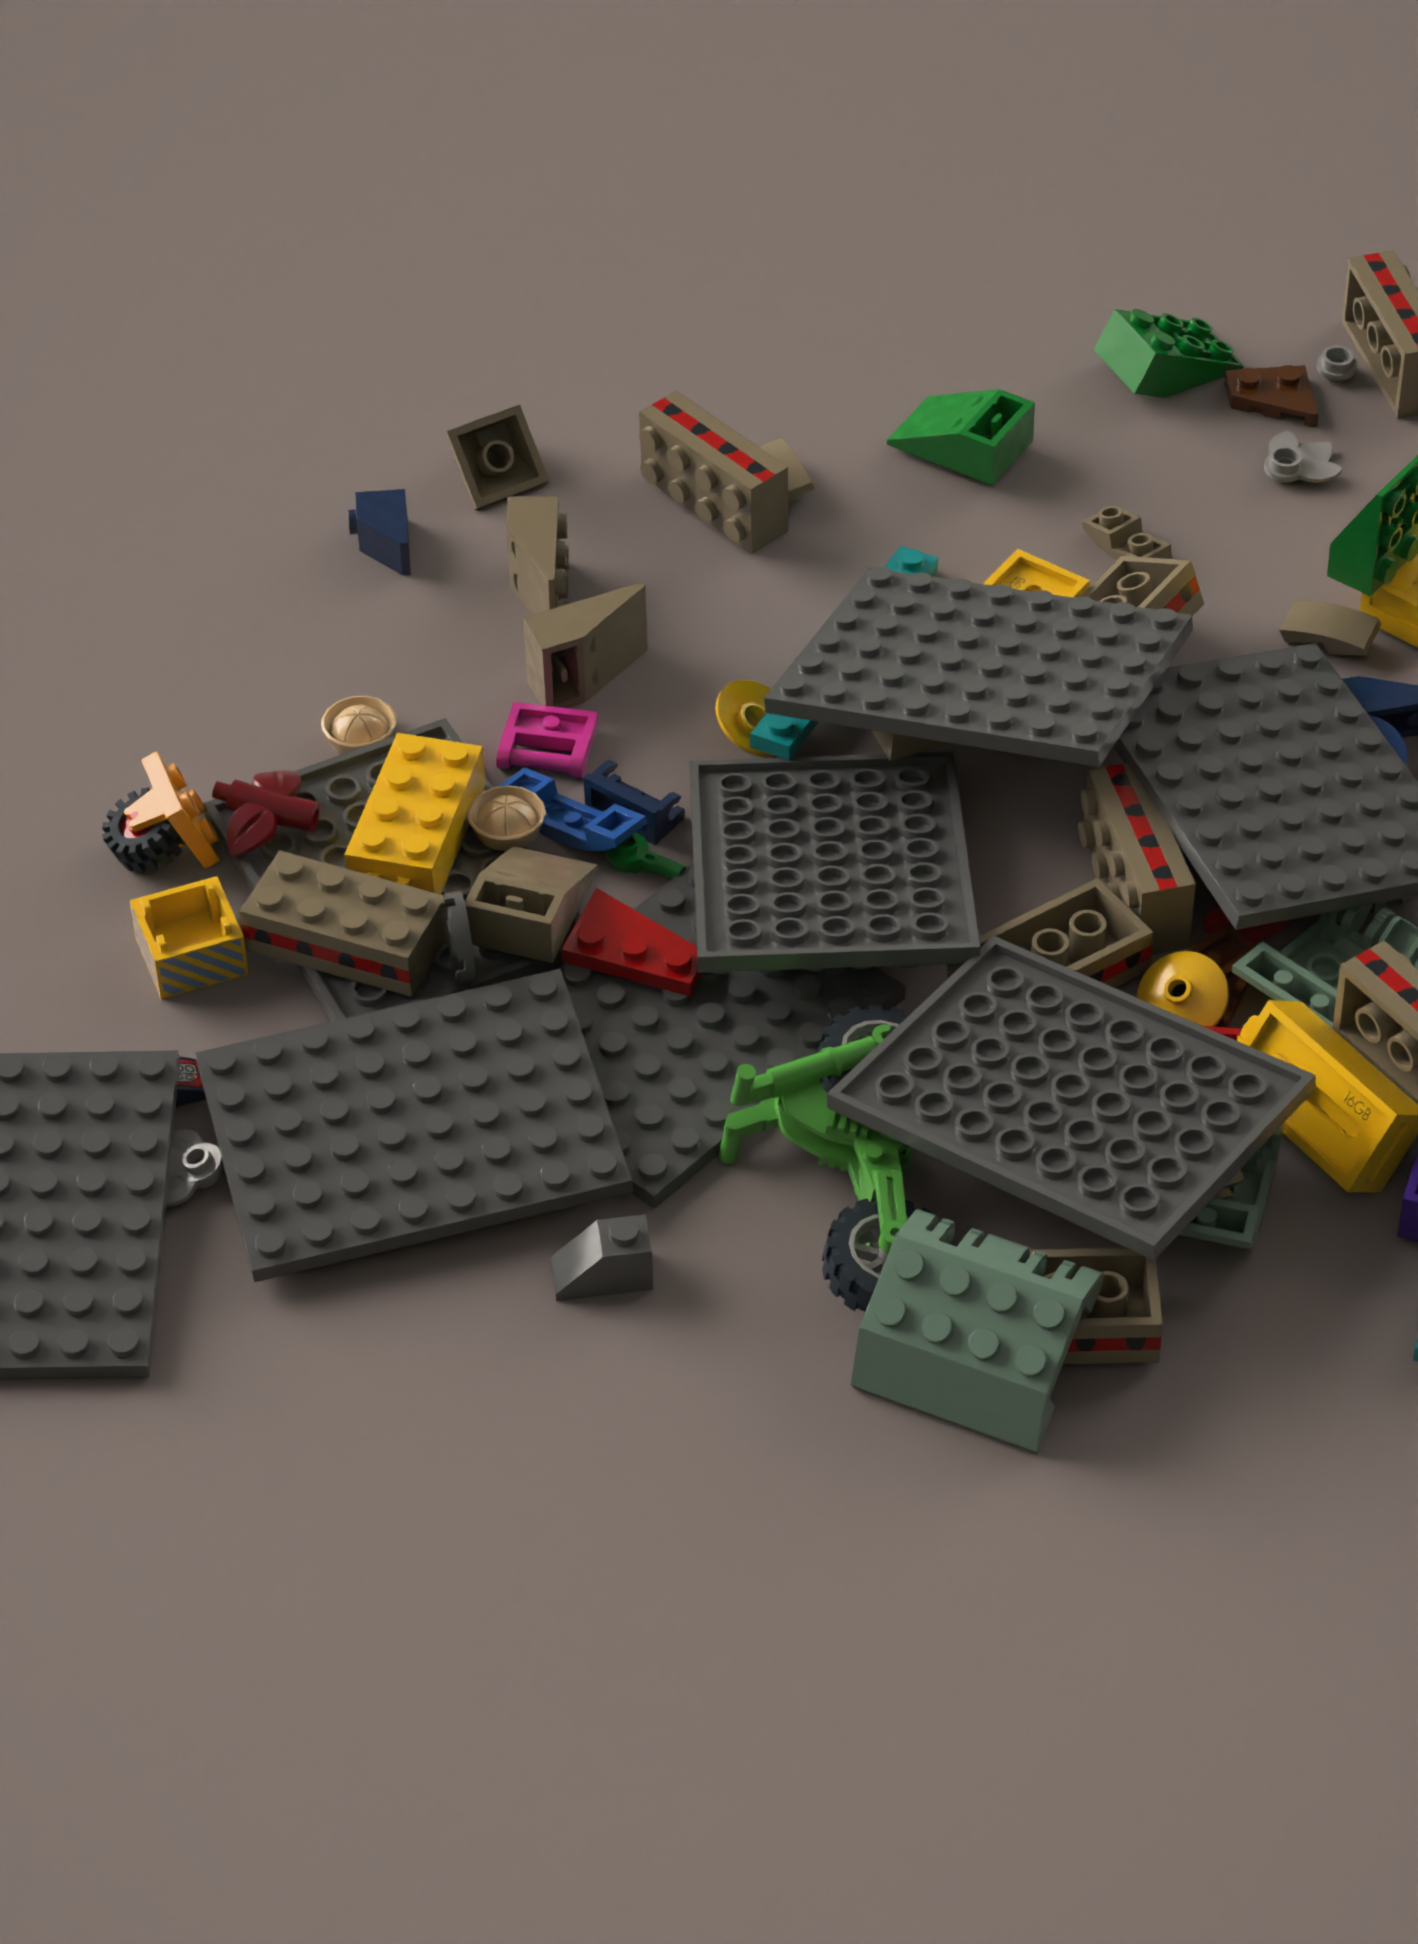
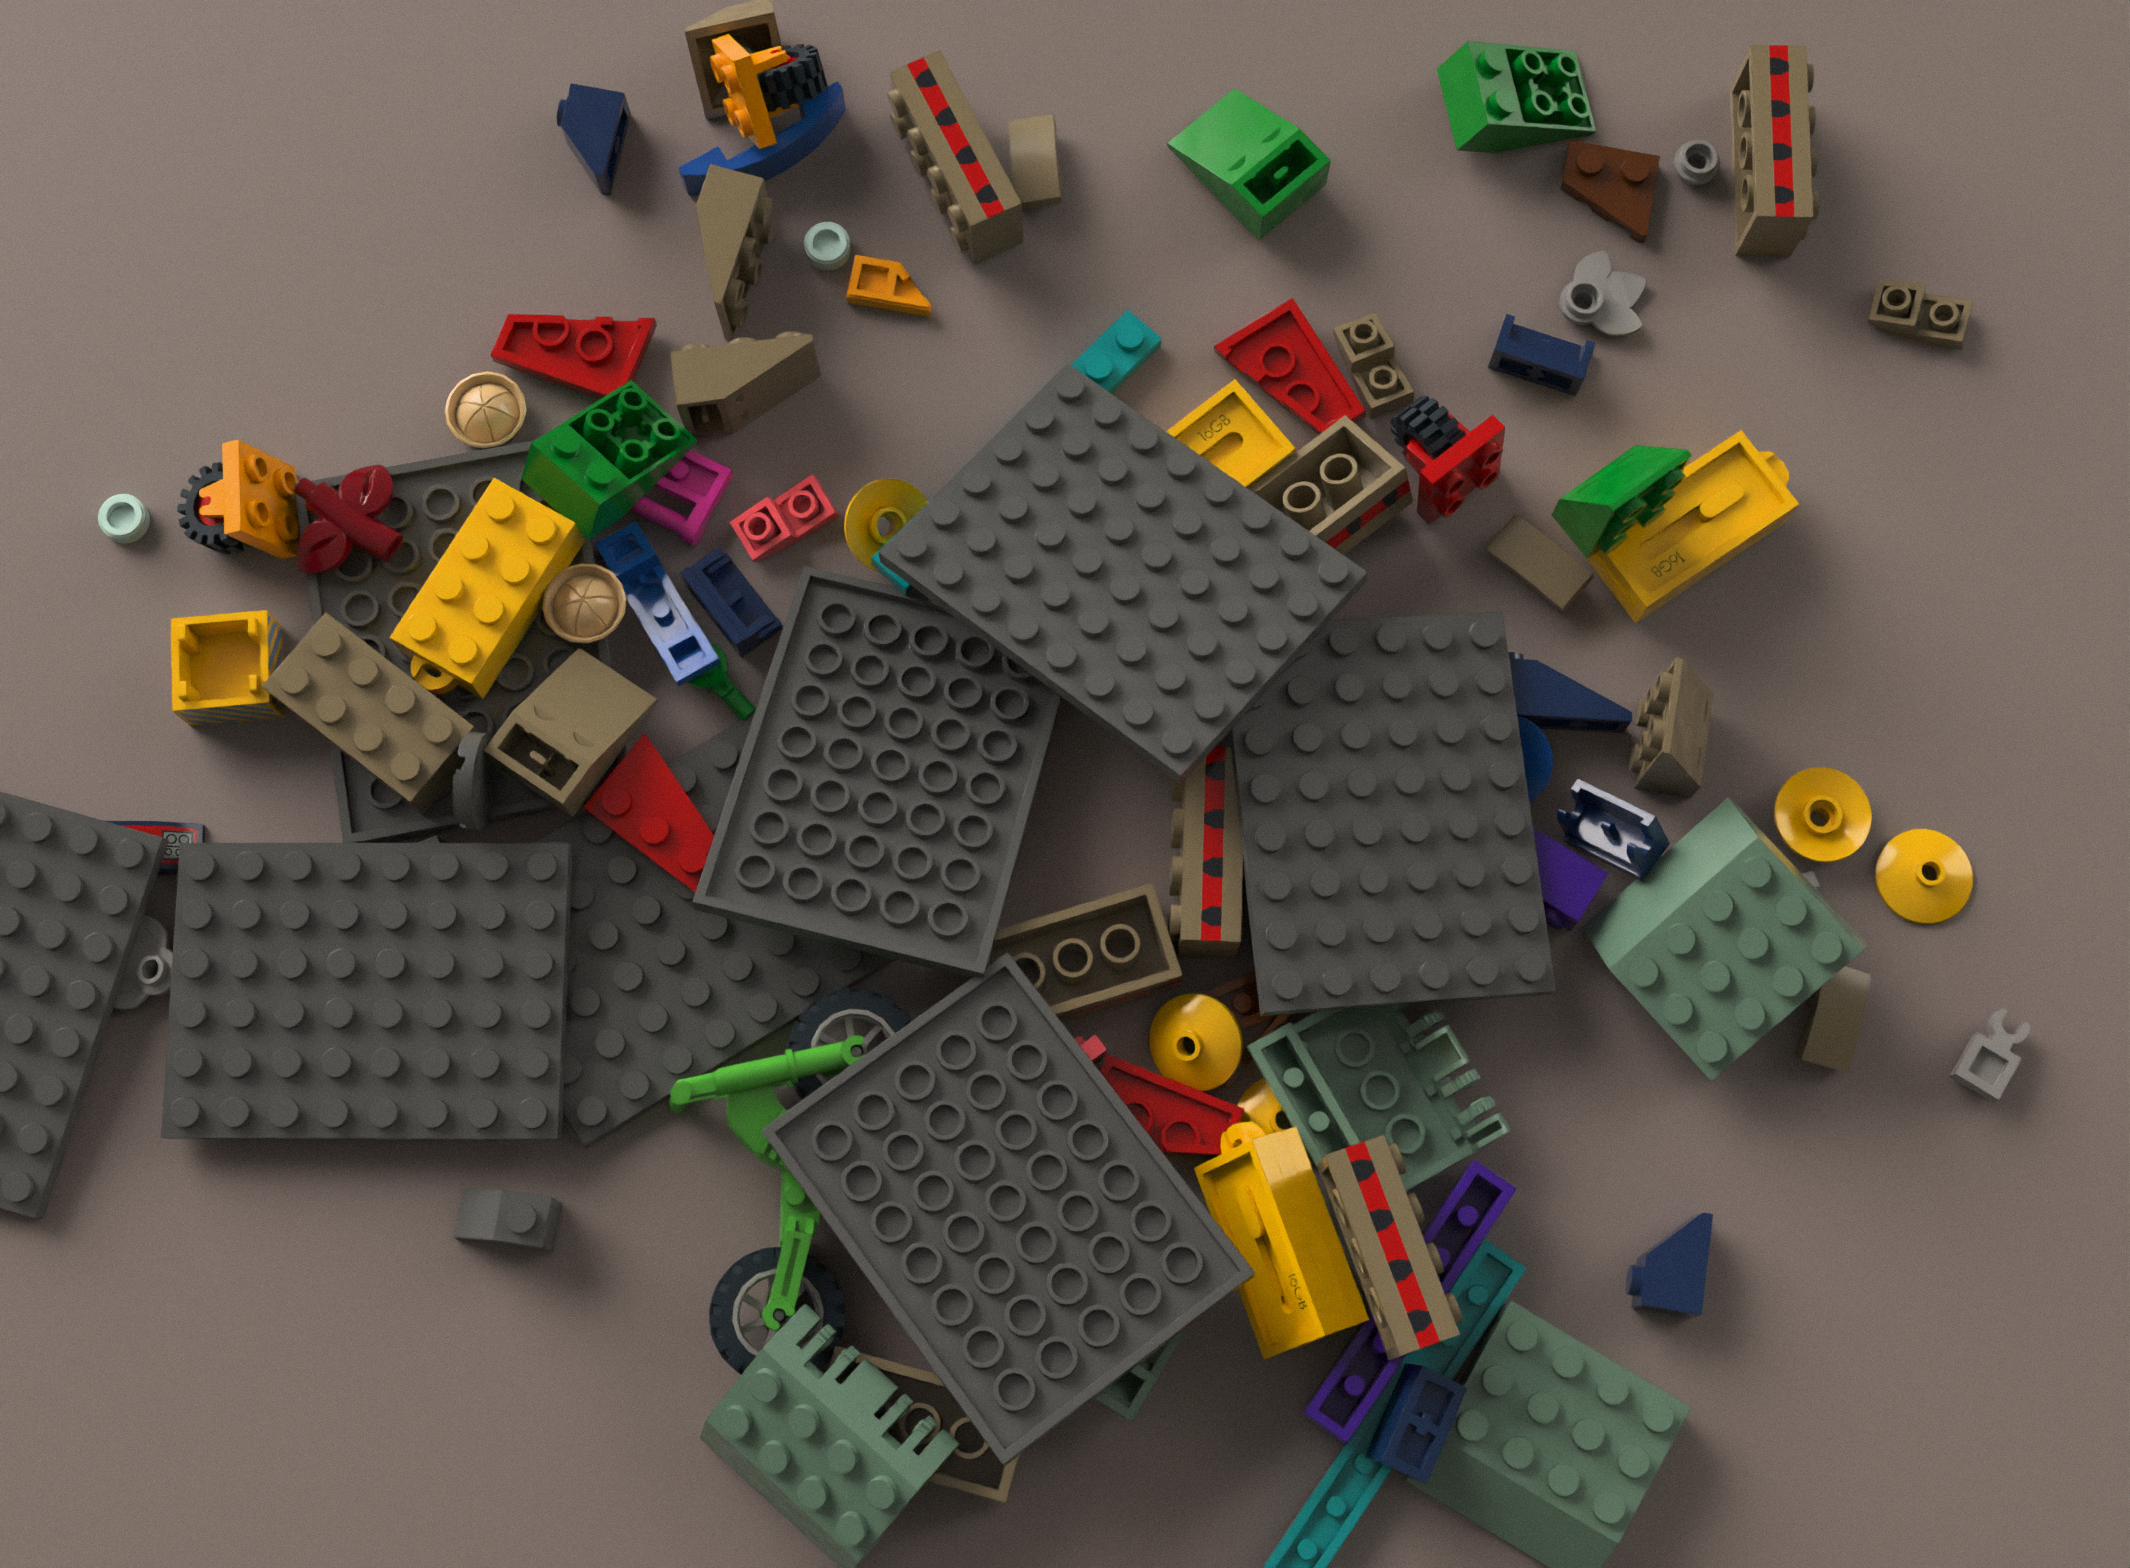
camera: 15 degrees right, 30 degrees up
(48, 868) = (123, 518): none -> light aqua tile
(435, 672) = (575, 353): none -> red wing
(488, 713) = (606, 458): none -> green slope
(523, 454) = (765, 84): none -> light orange plate
(573, 491) = (793, 144): none -> blue slope
(618, 564) = (827, 246): none -> light aqua tile
(660, 742) = (785, 520): none -> coral slope
(682, 579) = (885, 286): none -> light orange tile
(1057, 542) = (1292, 367): none -> red wing
(1226, 568) = (1447, 455): none -> red plate
(1266, 507) = (1540, 357): none -> dark blue hinge

